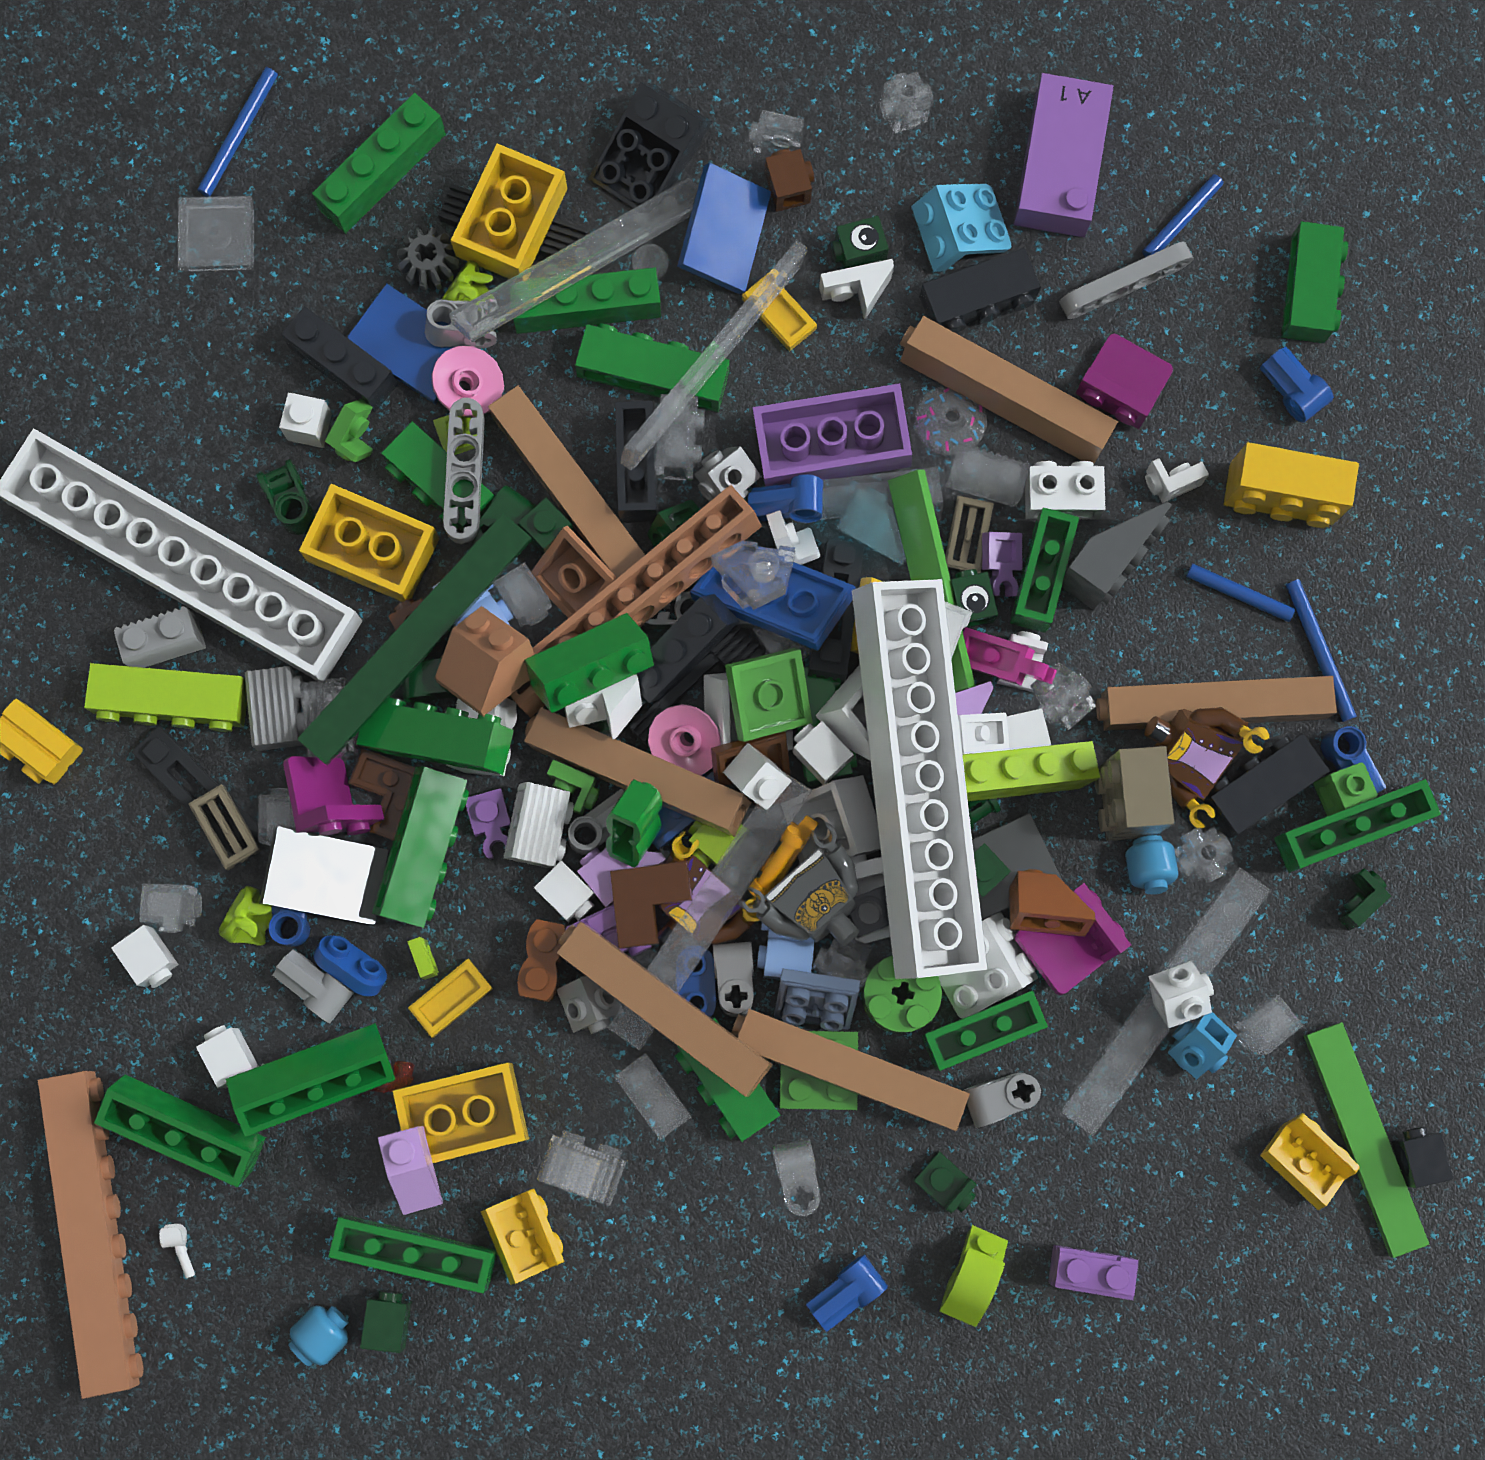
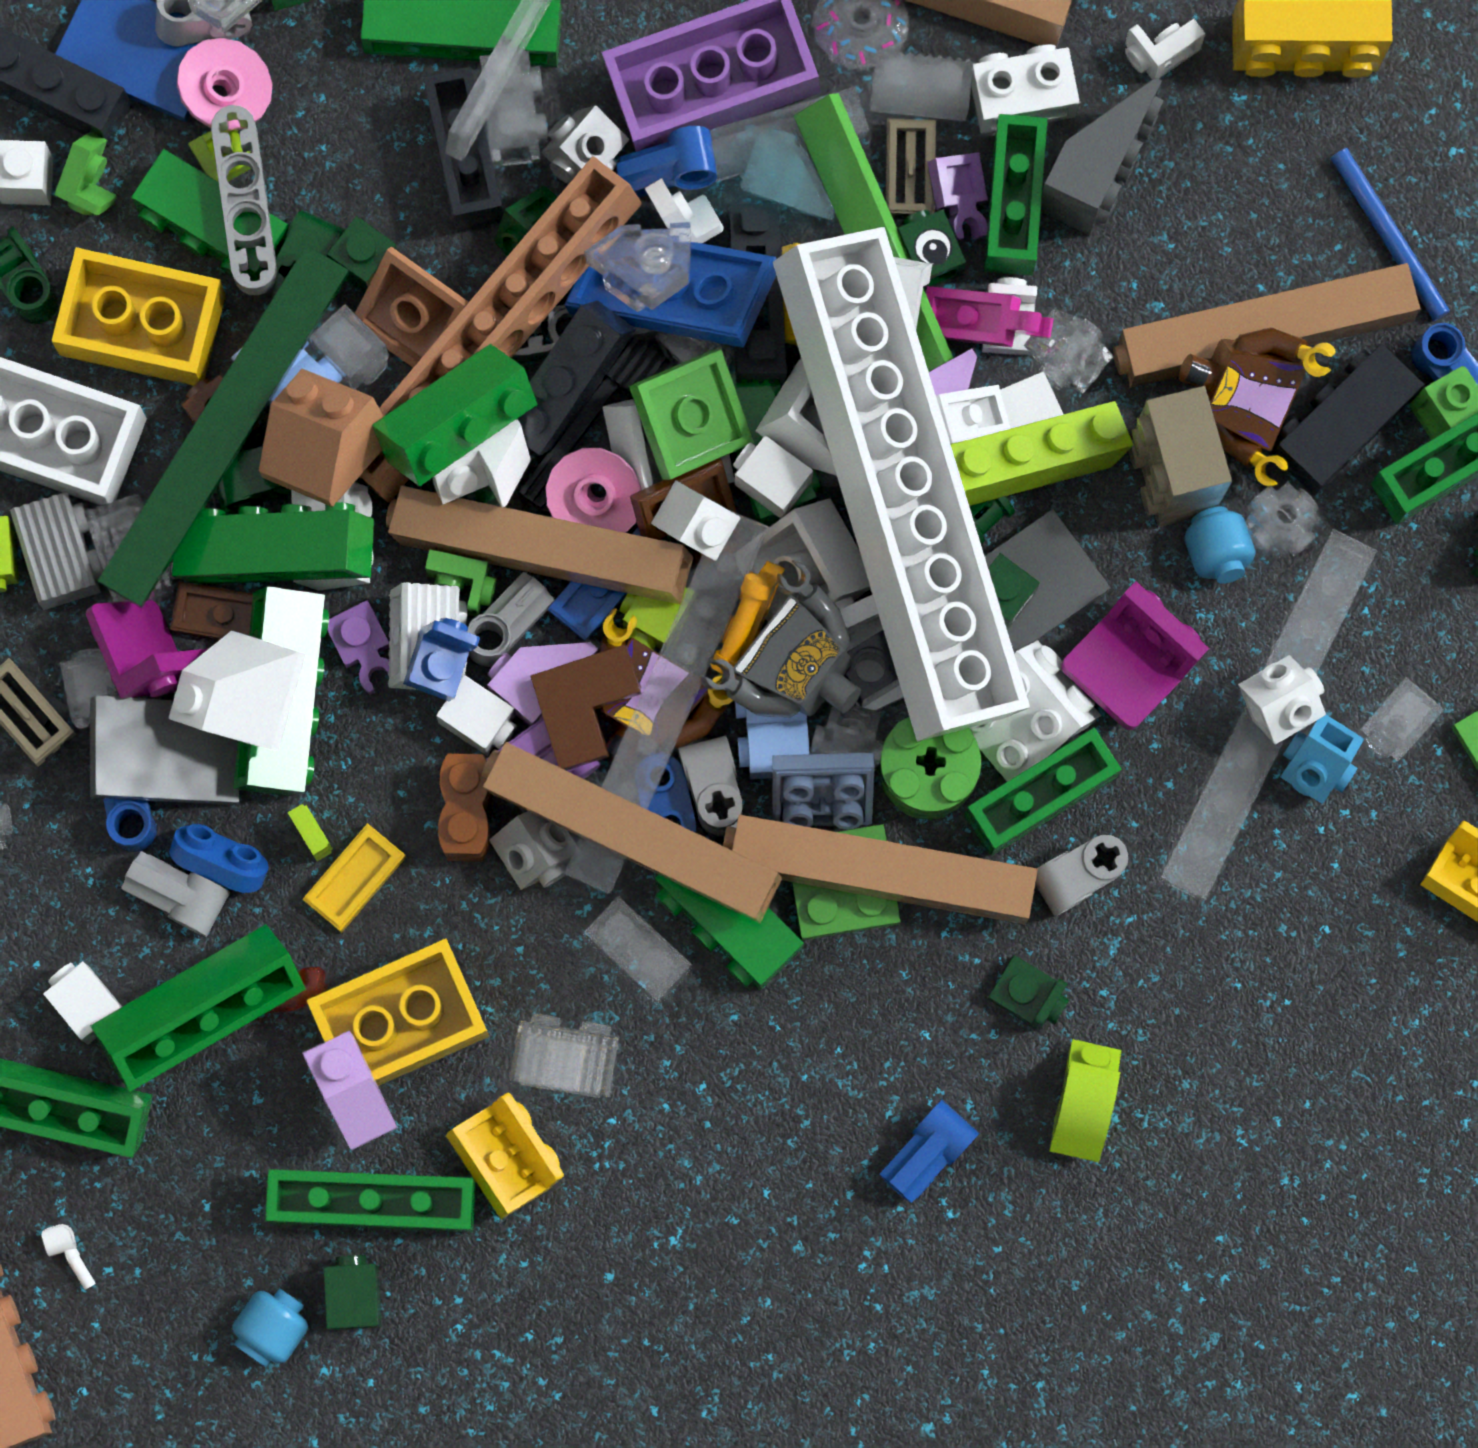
camera: 10 degrees left, 0 degrees up
(246, 919) = (74, 823): lime piece -> none
(386, 843) = (240, 690): none -> white slope
(544, 845) = (440, 658): none -> bracket
(565, 481) = (374, 190): medium nougat brick -> none
(634, 823) = (549, 608): green brick -> none
(797, 1169) = (839, 1011): clear piece -> none
(1047, 905) = (1094, 619): dark orange slope -> none
(1093, 1272) = (1234, 1067): medium lavender brick -> none
(1240, 592) = (1274, 179): blue bar -> none

